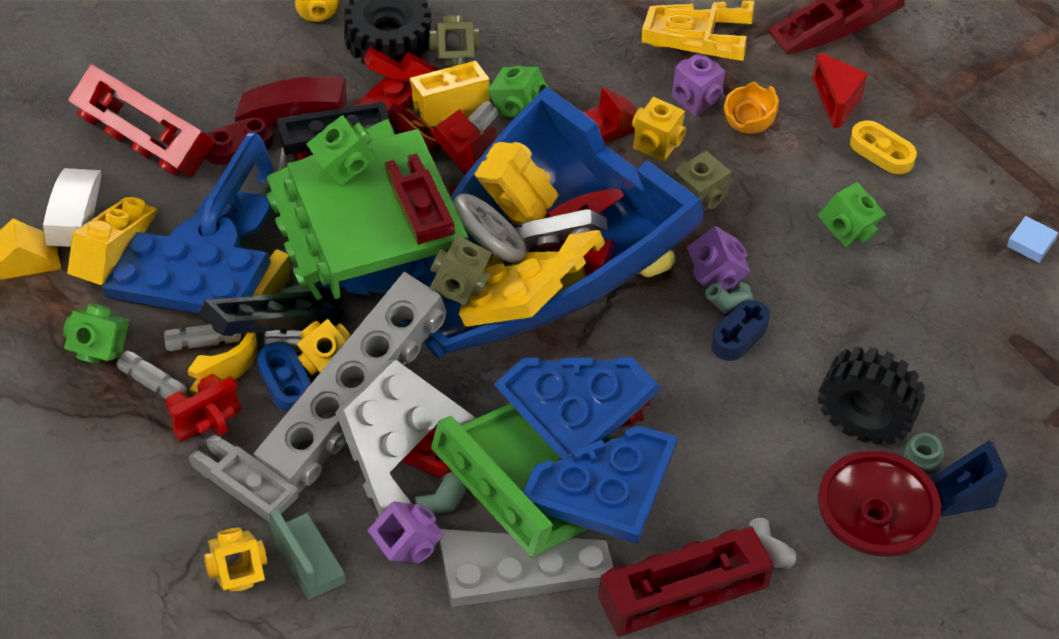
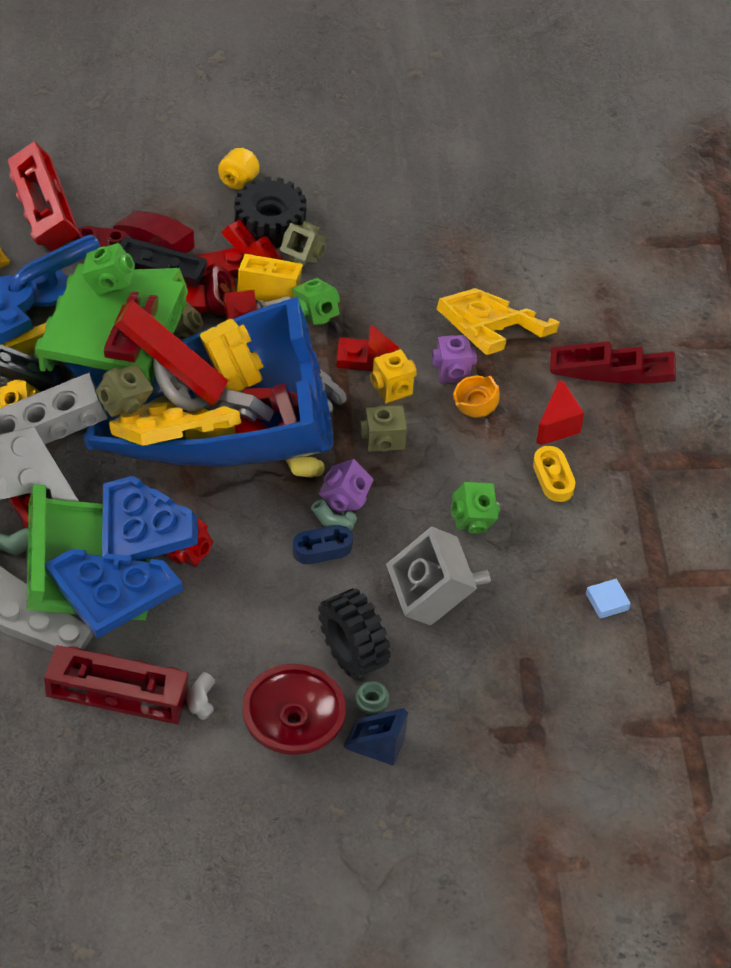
camera: 35 degrees right, 0 degrees up
(479, 205) = (171, 352): none -> red tile
(630, 222) = (282, 402): none -> dark red plate
(885, 301) = (433, 576): none -> light grey piece

